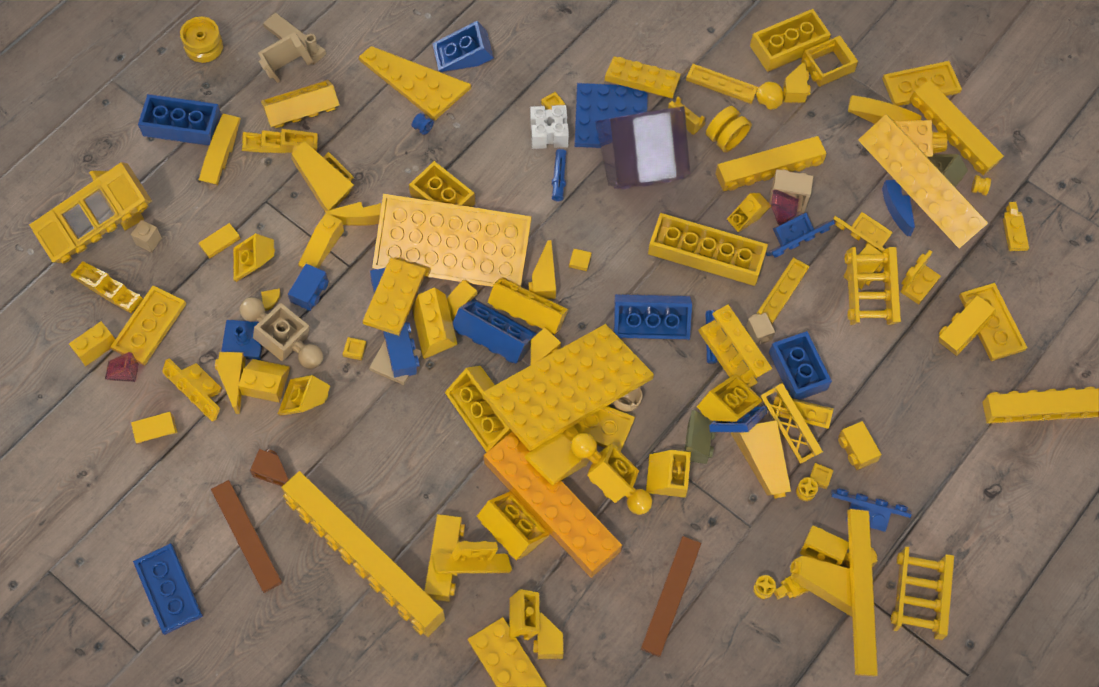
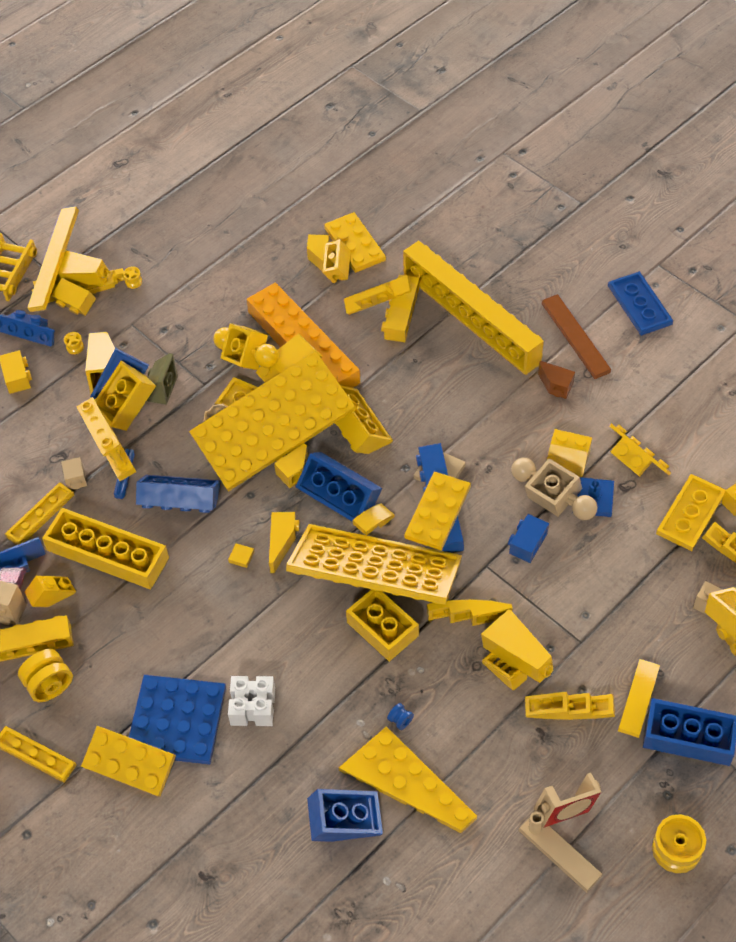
camera: 170 degrees left, 10 degrees down
(122, 368) = (712, 470): clear pink slope -> none
(154, 427) = (670, 419): yellow hinge -> none
(219, 240) = (628, 597): yellow tile -> none
(230, 368) = (601, 457): yellow slope -> none
(251, 255) = (589, 570): yellow slope -> none
(270, 298) = (568, 534): yellow tile -> none
(300, 103) = (548, 754): yellow slope -> none
(303, 395) = (529, 435): yellow slope -> none
(322, 241) = (516, 583): yellow slope -> none
(354, 348) = (480, 483): yellow tile -> none
(433, 322) = (397, 487): yellow slope -> none
(512, 525) = (340, 325): yellow slope -> none
(527, 306) = (302, 502): yellow brick -> none
(552, 100) = (242, 740): yellow tile -> none
(559, 169) = (250, 639): blue pin -> none
(644, 147) = (148, 638): clear purple windscreen -> none
(668, 473) = (194, 355): yellow slope -> none
(670, 596) = (211, 279): dark orange tile -> none
(693, 122) = (88, 709): yellow hinge -> none
(798, 420) = (65, 385): yellow fence -> none
(800, 366) = (47, 433): blue brick -> none
(811, 413) = (42, 395): yellow hinge -> none
(821, 475) = (57, 355): yellow tile -> none

